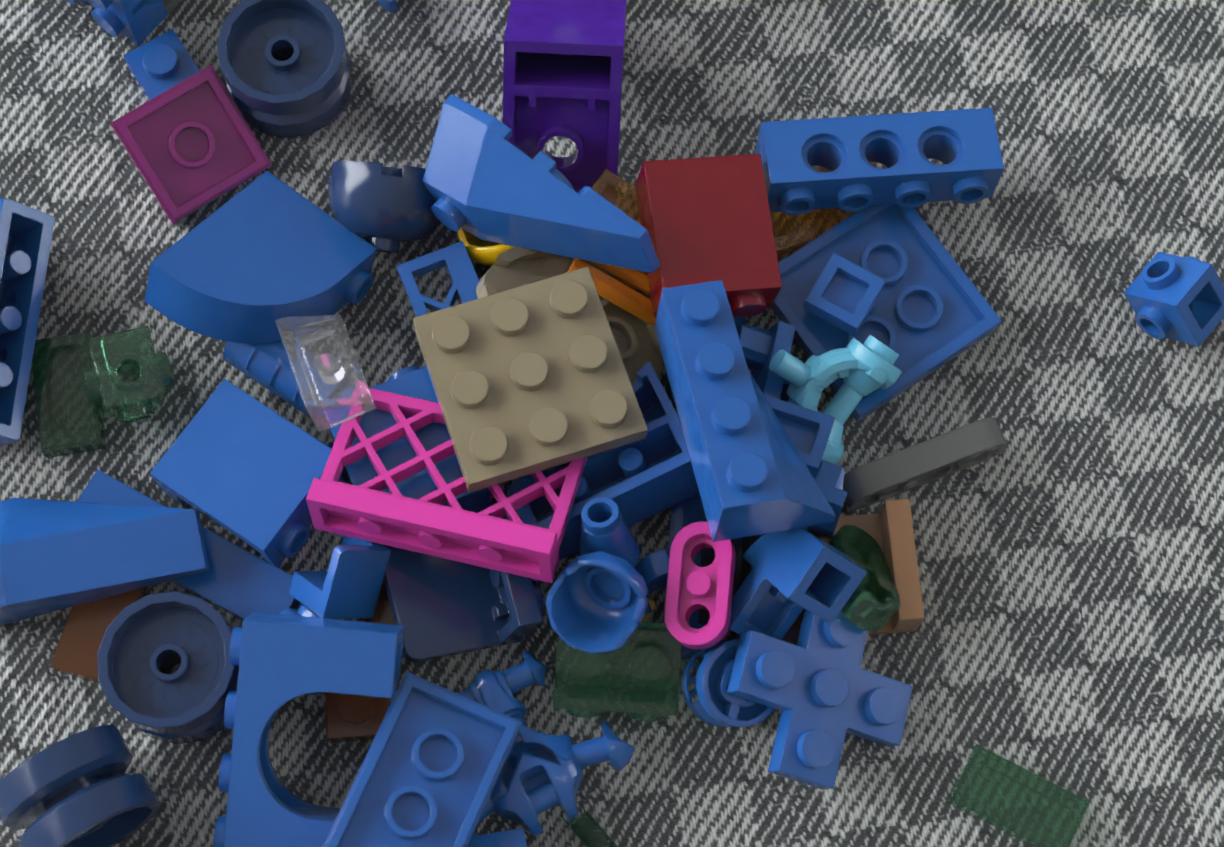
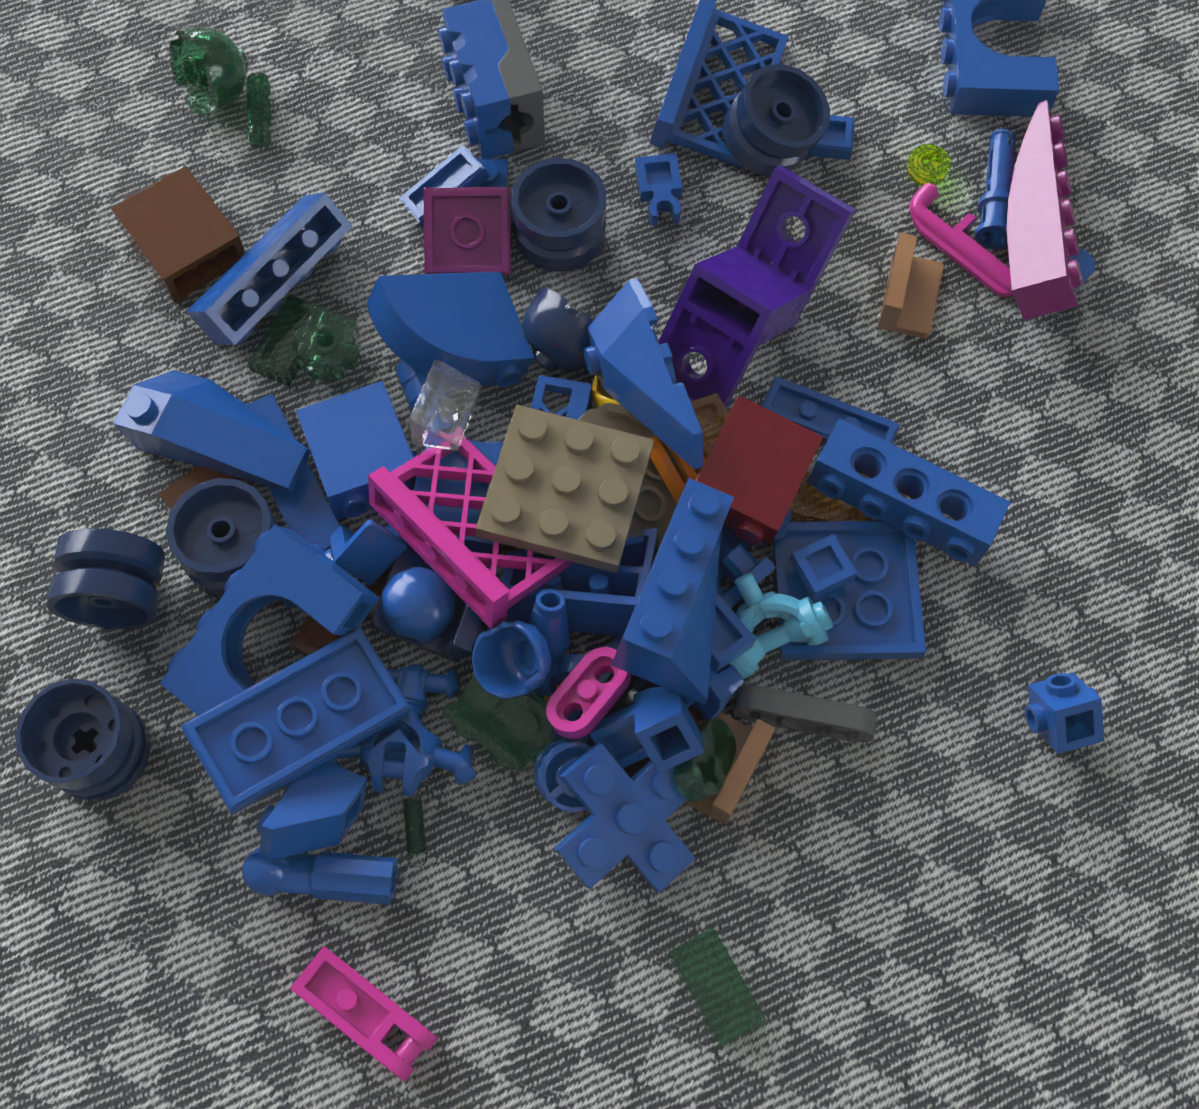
camera: 35 degrees right, 5 degrees down
(128, 82) = (457, 170): none -> tile
(446, 605) = (419, 604): none -> blue hair
(724, 124) = (820, 412): none -> blue tile

